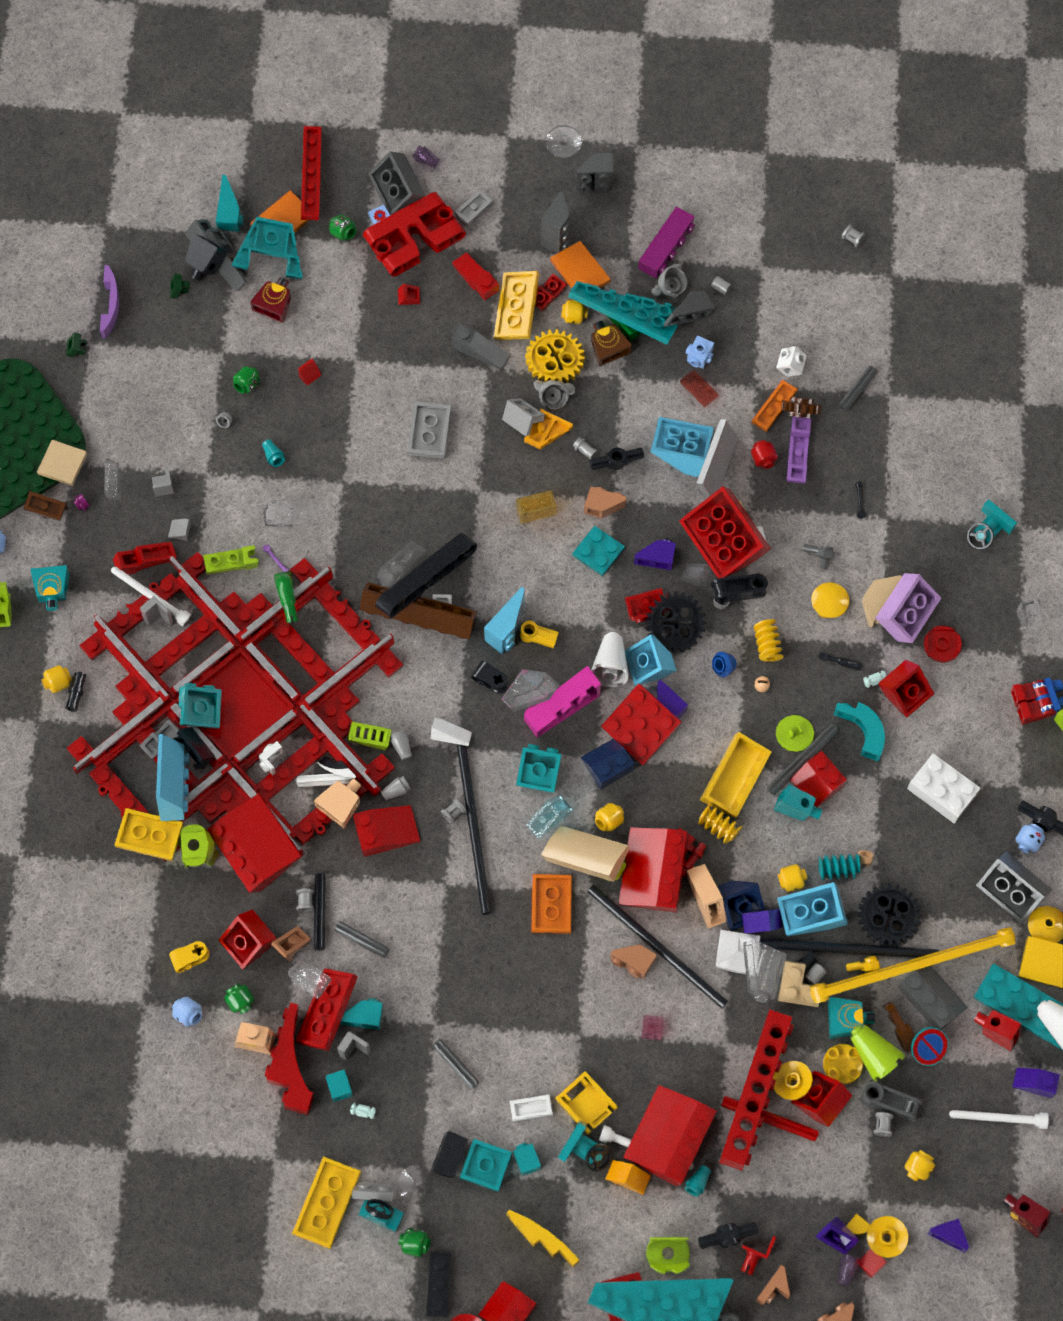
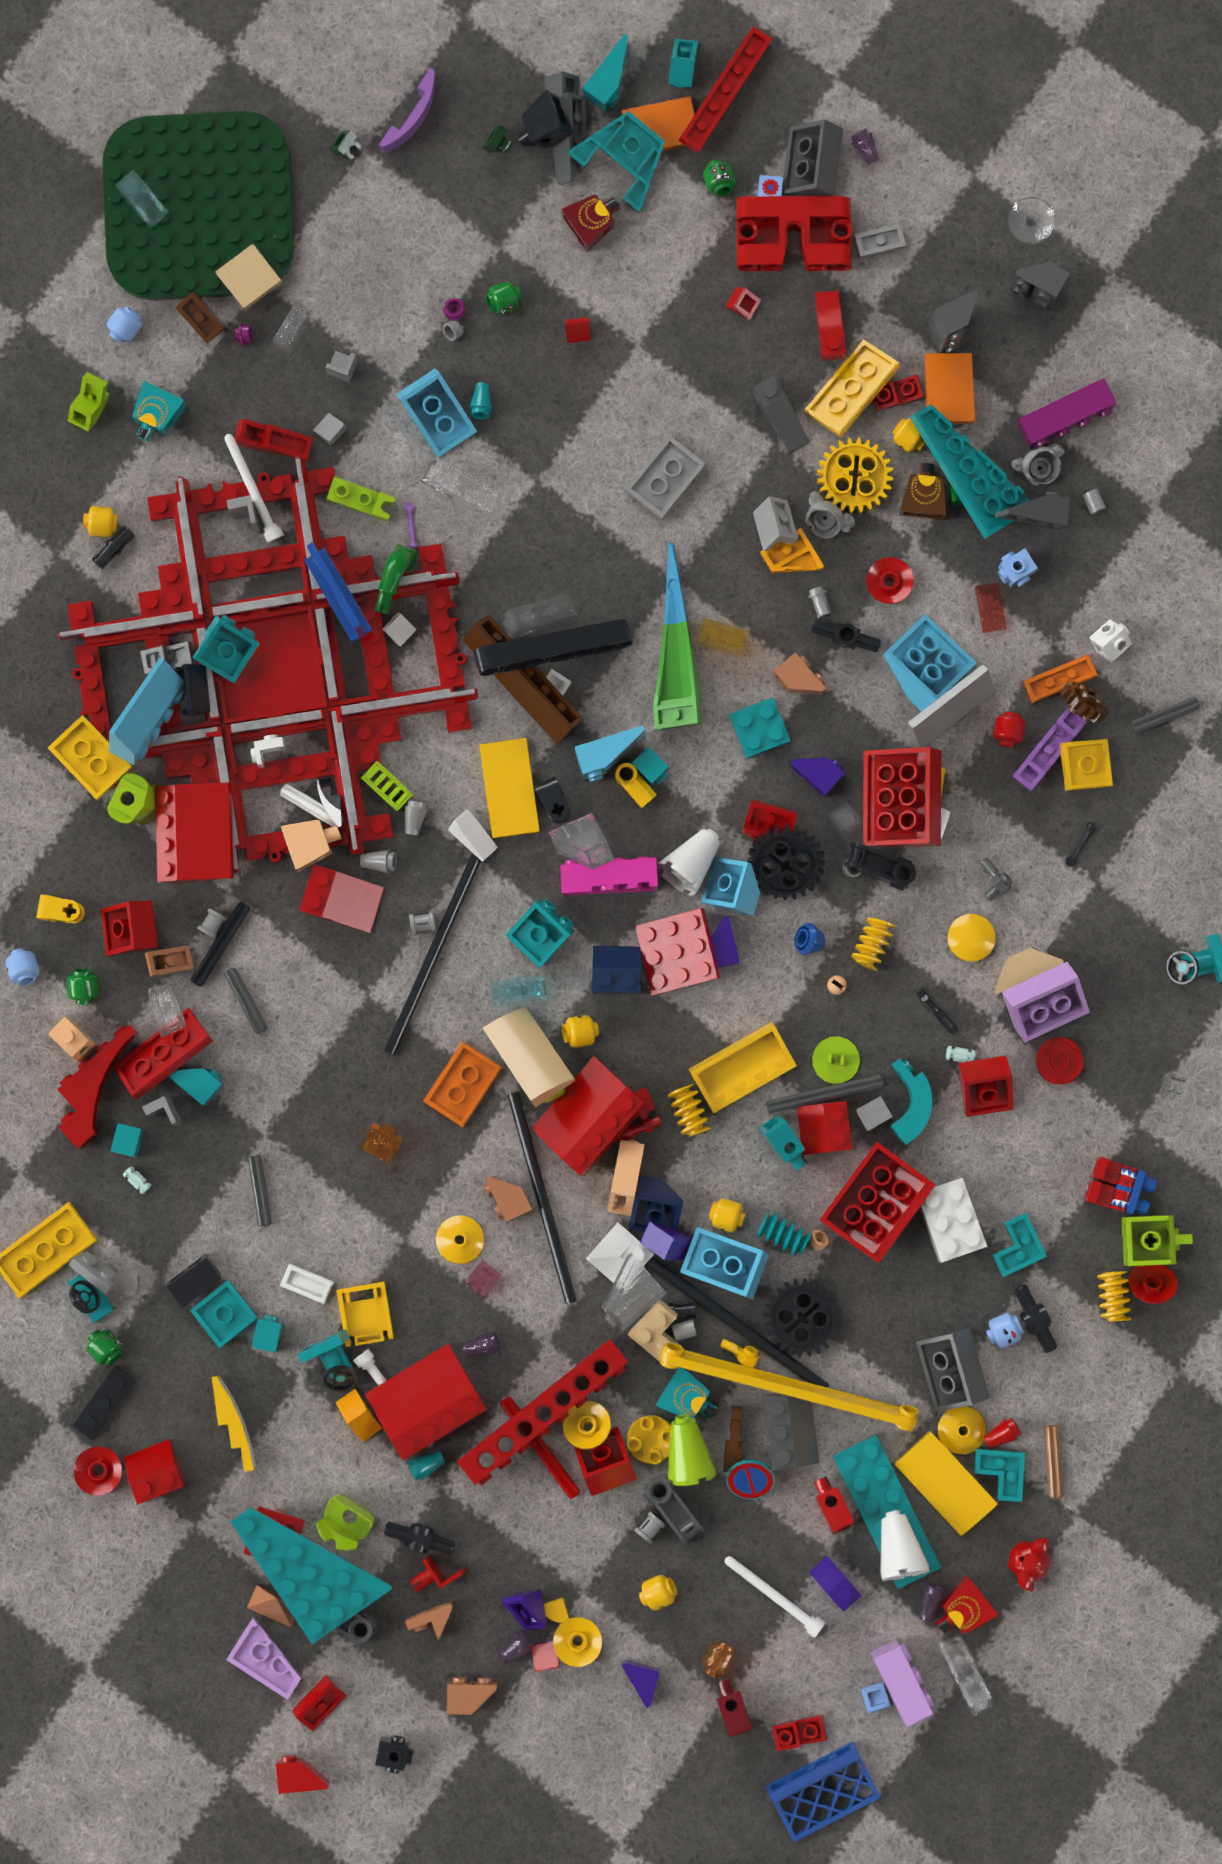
camera: 35 degrees right, 15 degrees up
(216, 402) = (454, 303): none -> magenta plate
(246, 476) = (436, 412): none -> medium azure slope
(254, 623) = (337, 593): none -> blue fence
(272, 173) = (683, 63): none -> teal slope
(311, 629) = (399, 629): none -> white tile
(454, 688) = (509, 788): none -> yellow tile
(521, 975) = (382, 1142): none -> clear orange brick
(525, 554) = (677, 685): none -> bright green plate
(543, 615) = (651, 767): none -> teal brick
(619, 1020) = (472, 1235): none -> yellow dish
(622, 400) = (897, 571): none -> red dish
(683, 1071) = (482, 1345): none -> clear purple cone
(829, 447) = (1086, 764): none -> yellow tile
(845, 749) = (873, 1113): none -> light grey panel
(887, 805) = (877, 1202): none -> red slope
(993, 1185) = (718, 1659): none -> clear orange head
(1005, 777) = (1026, 1247): none -> teal plate

